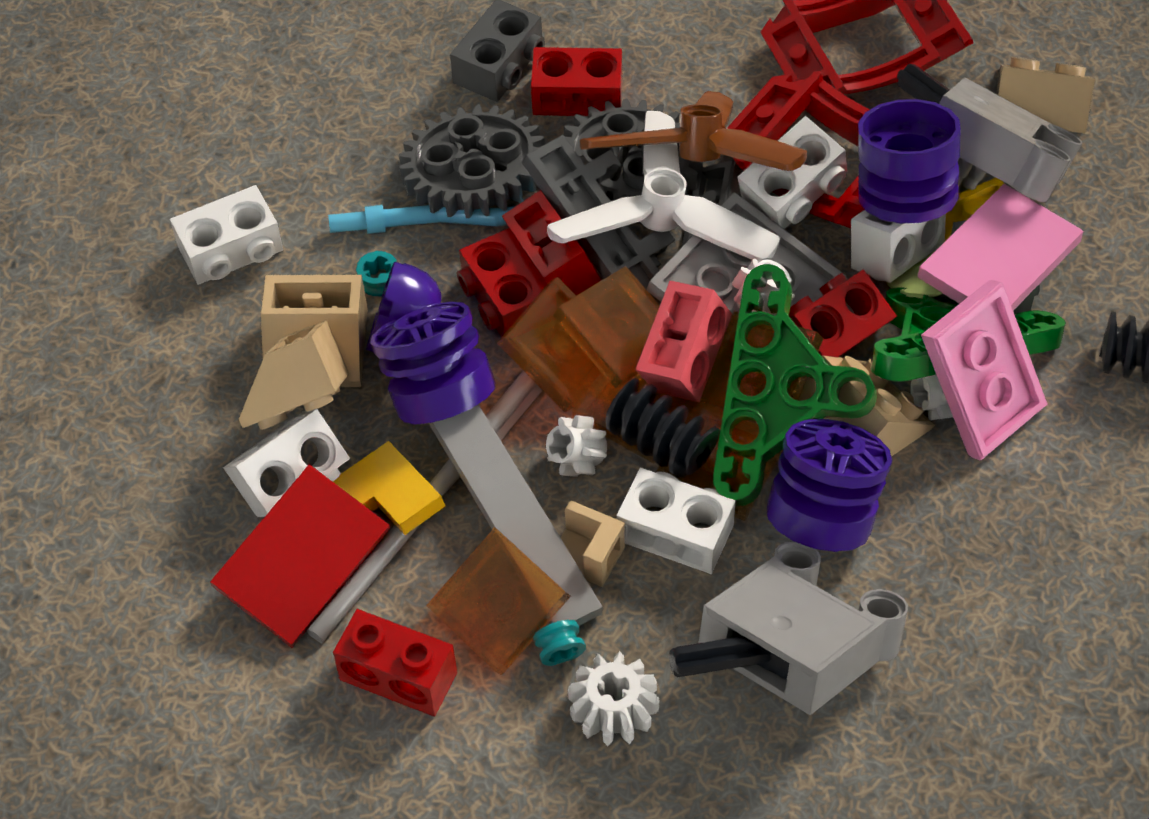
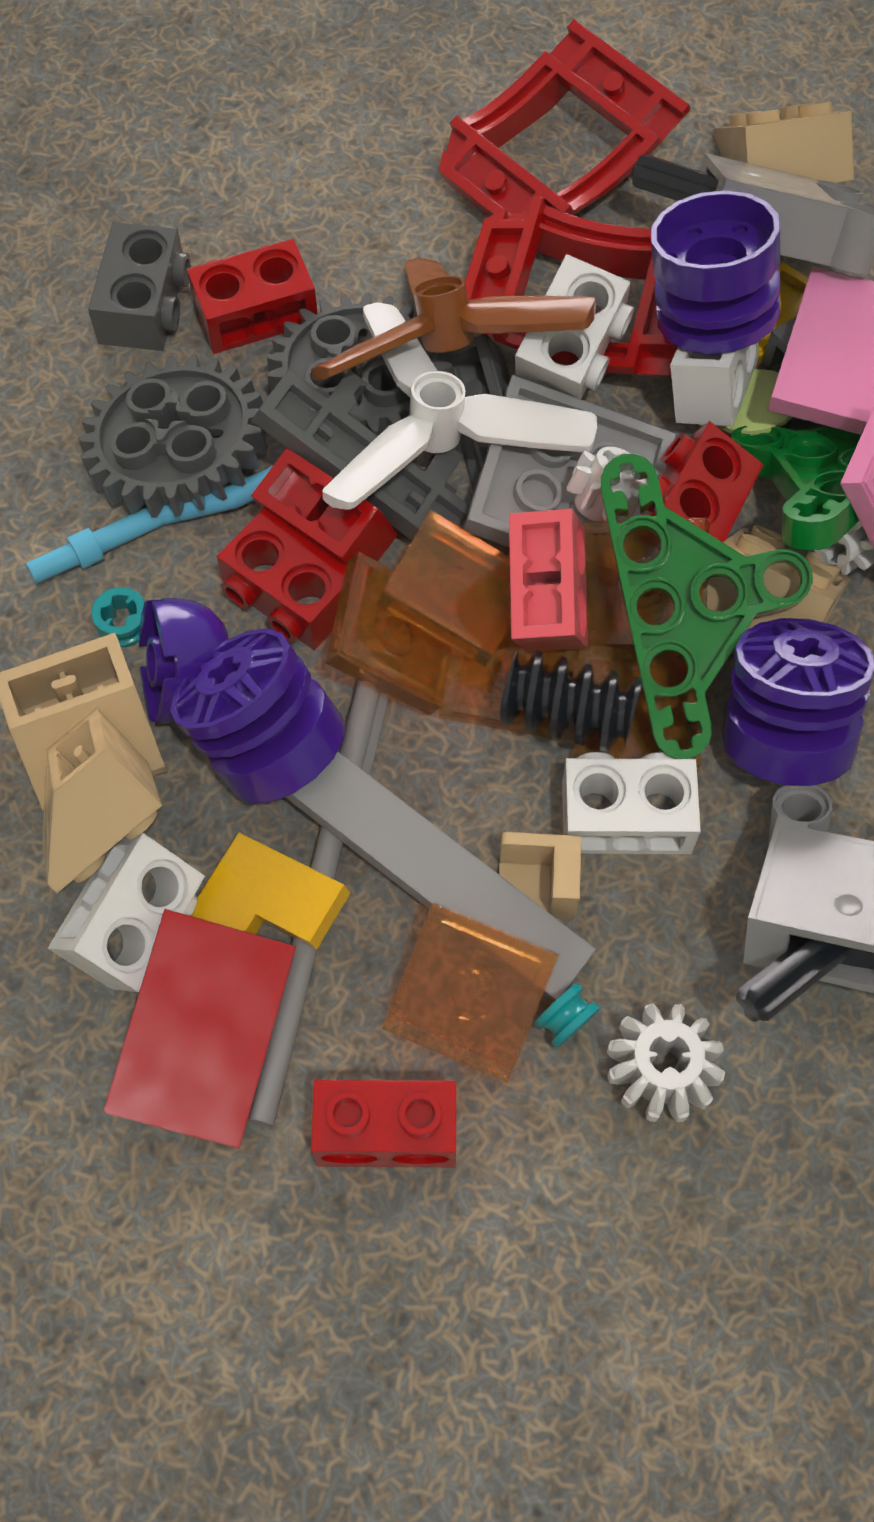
camera: 25 degrees left, 10 degrees up
(576, 445) = (467, 771): white gear -> none

